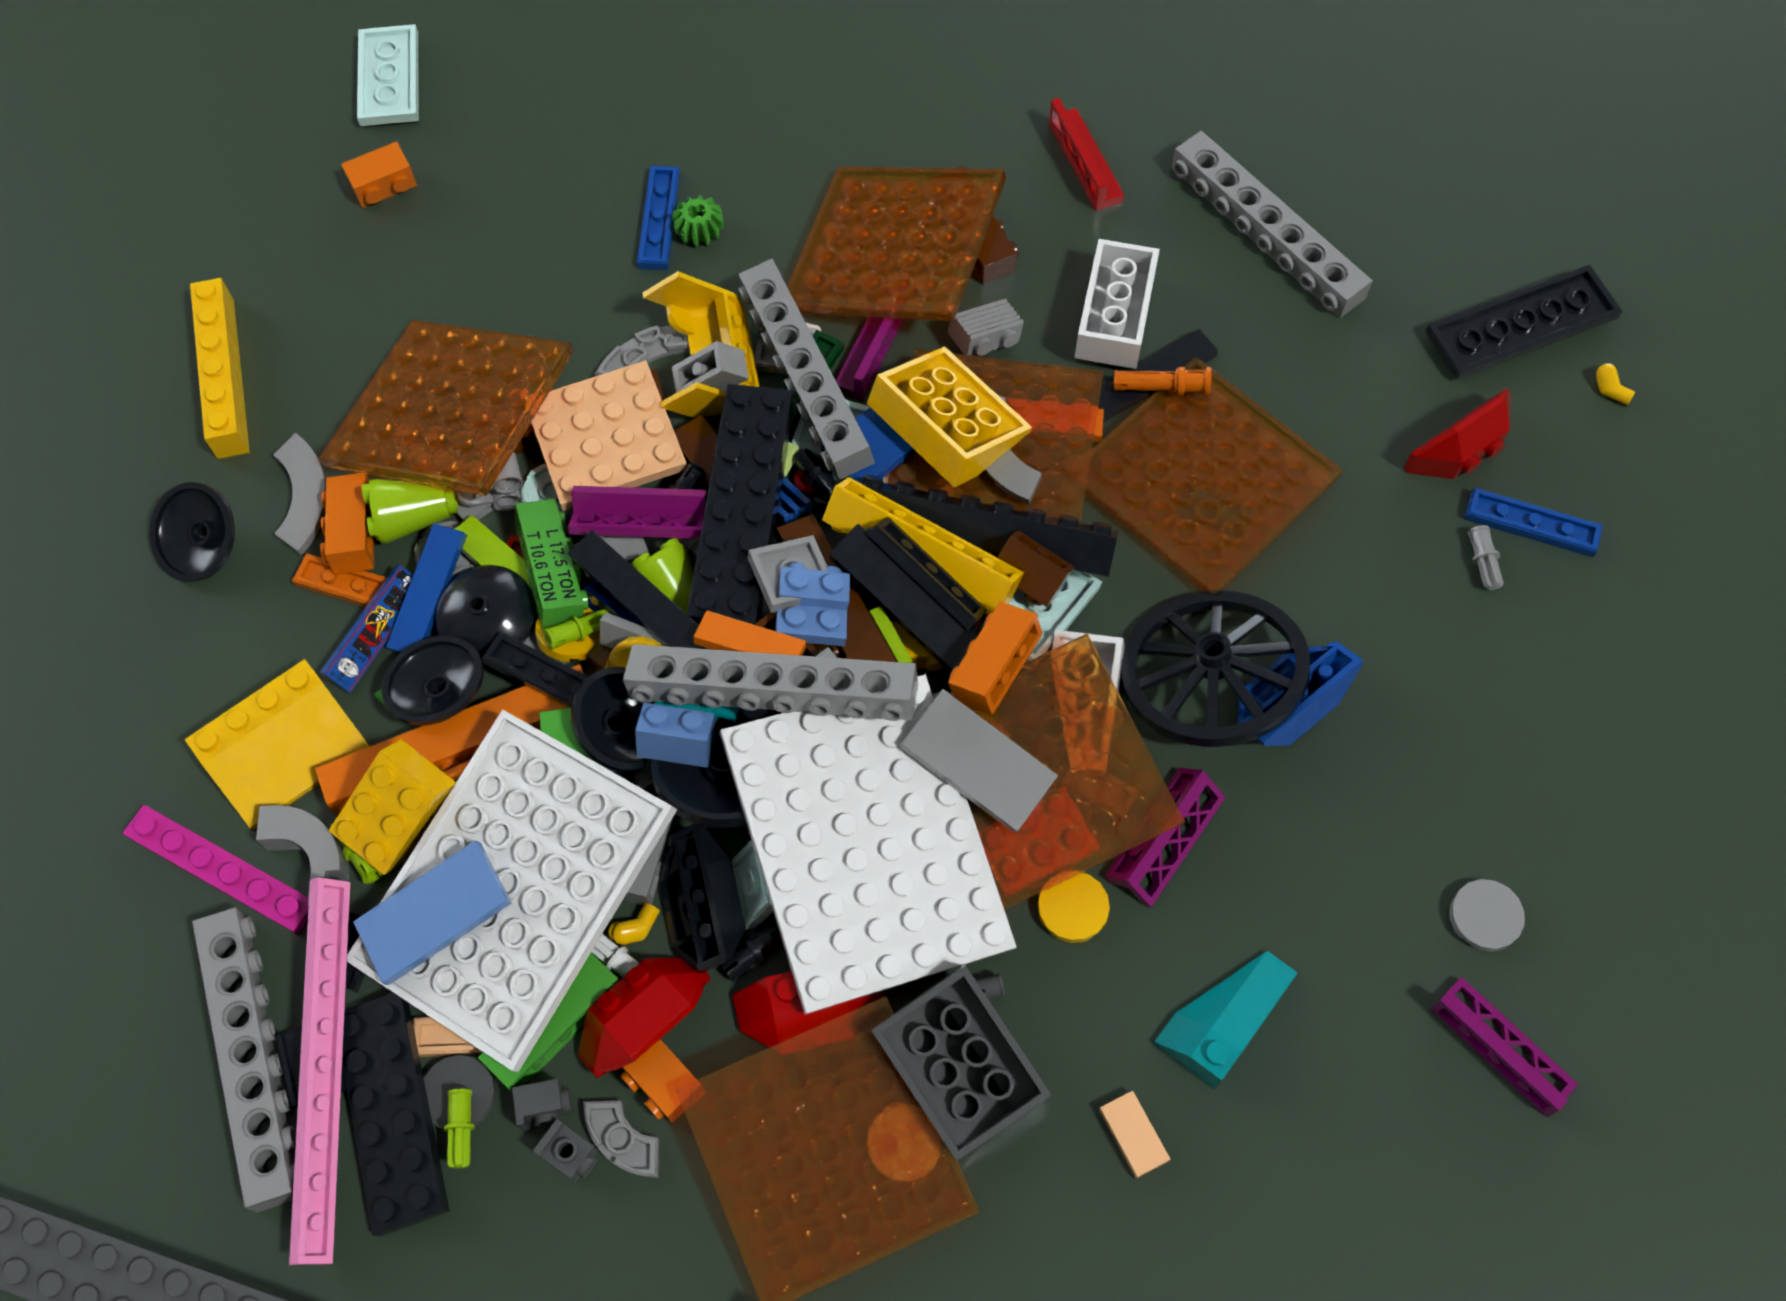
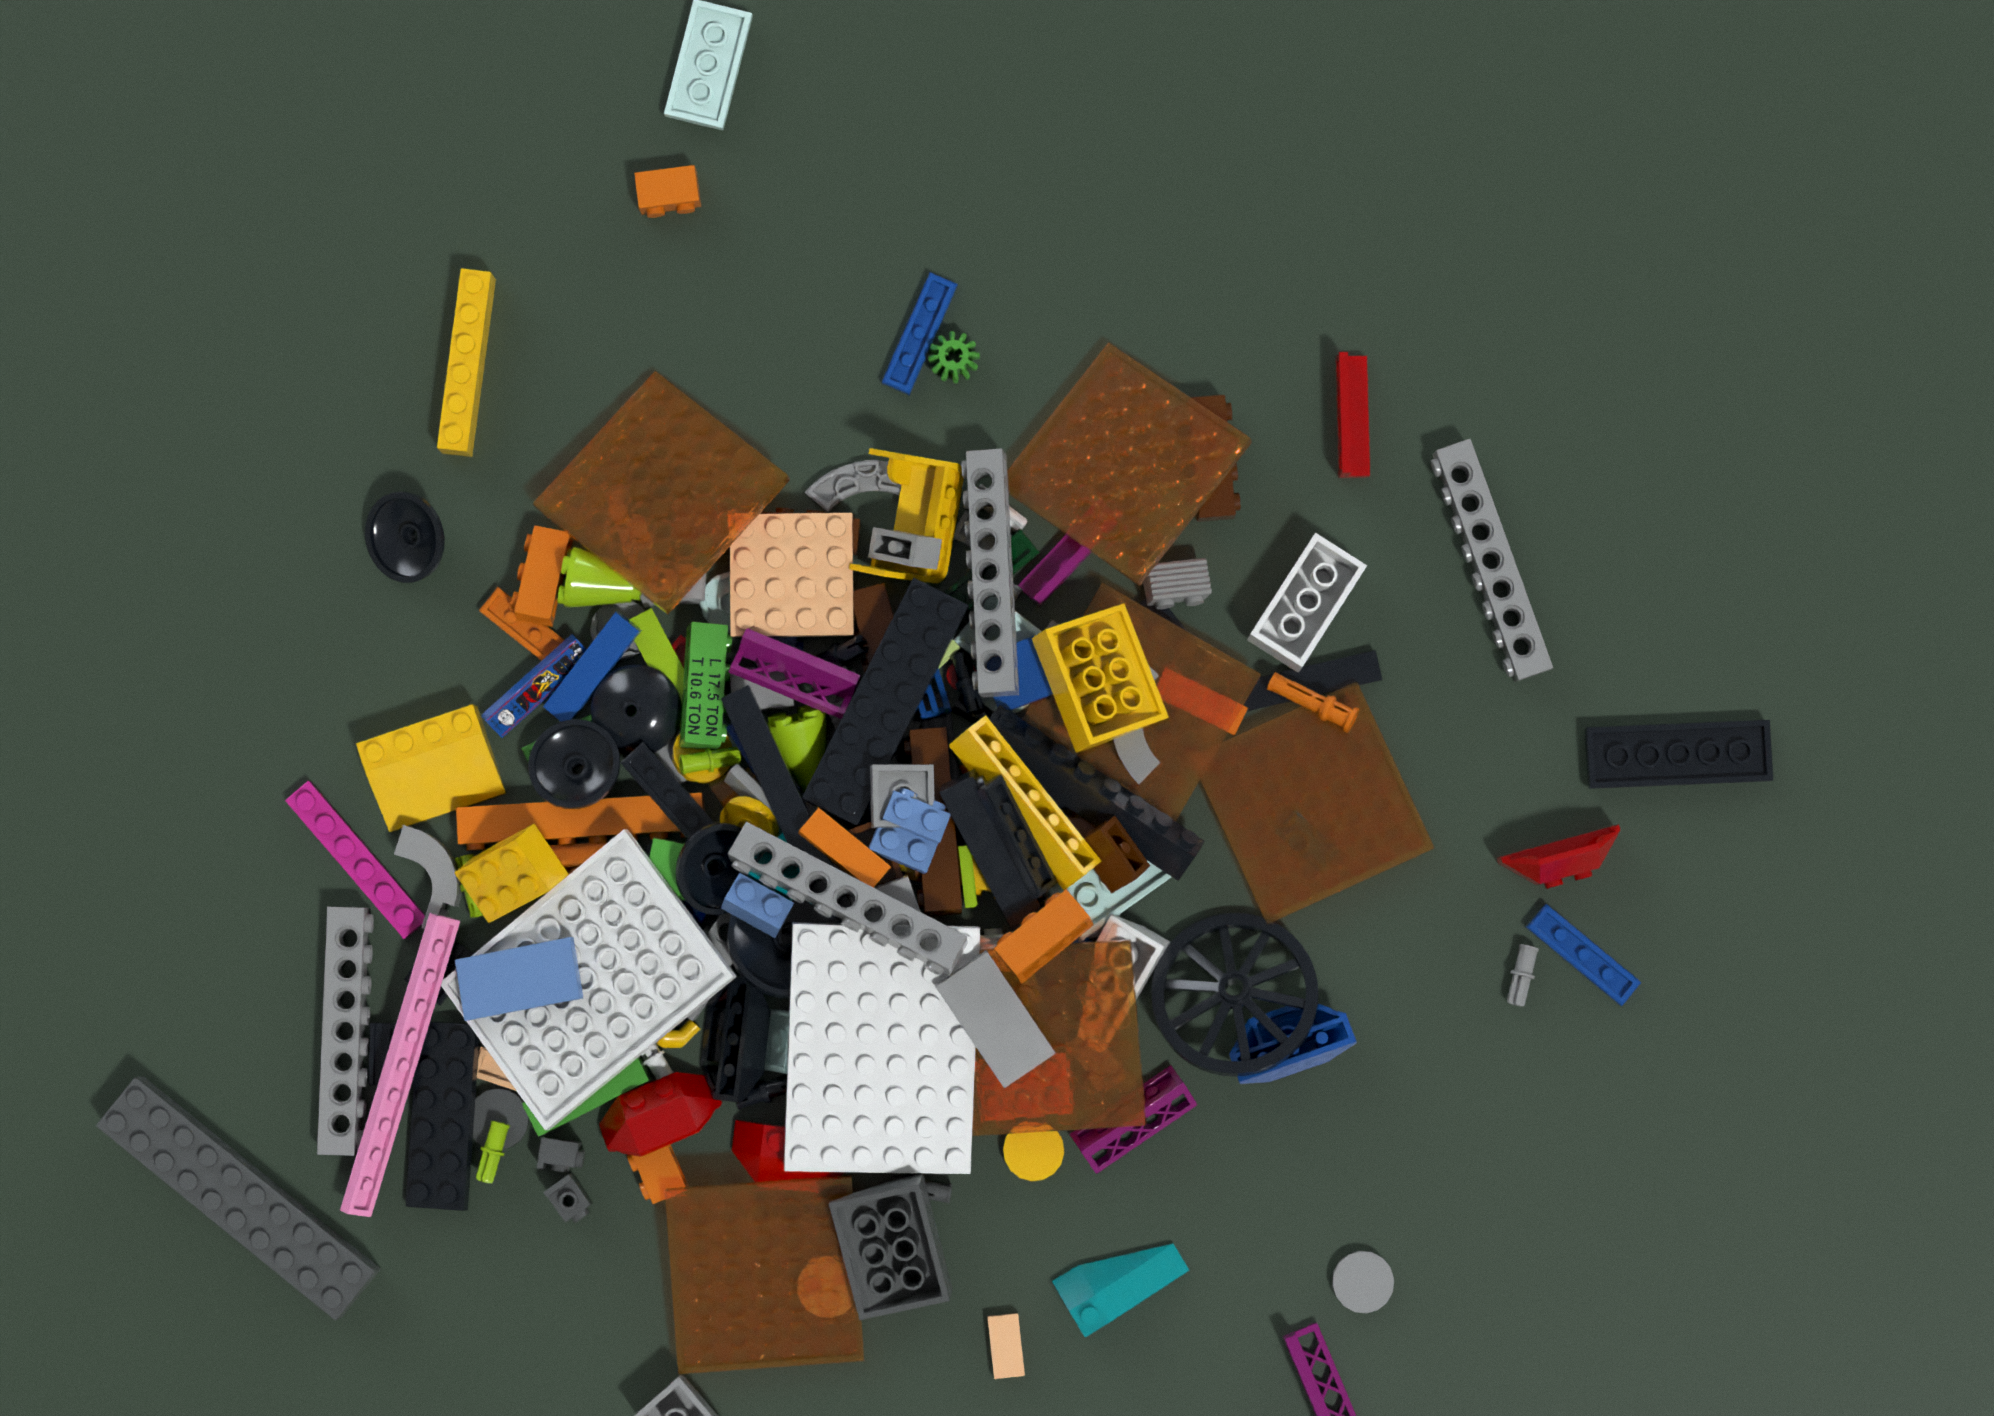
camera: 20 degrees right, 20 degrees up
(307, 485) = (514, 523): light grey tile -> none
(619, 1141) = (611, 1202): light grey tile -> none
(1610, 385) = (1723, 848): yellow arm -> none

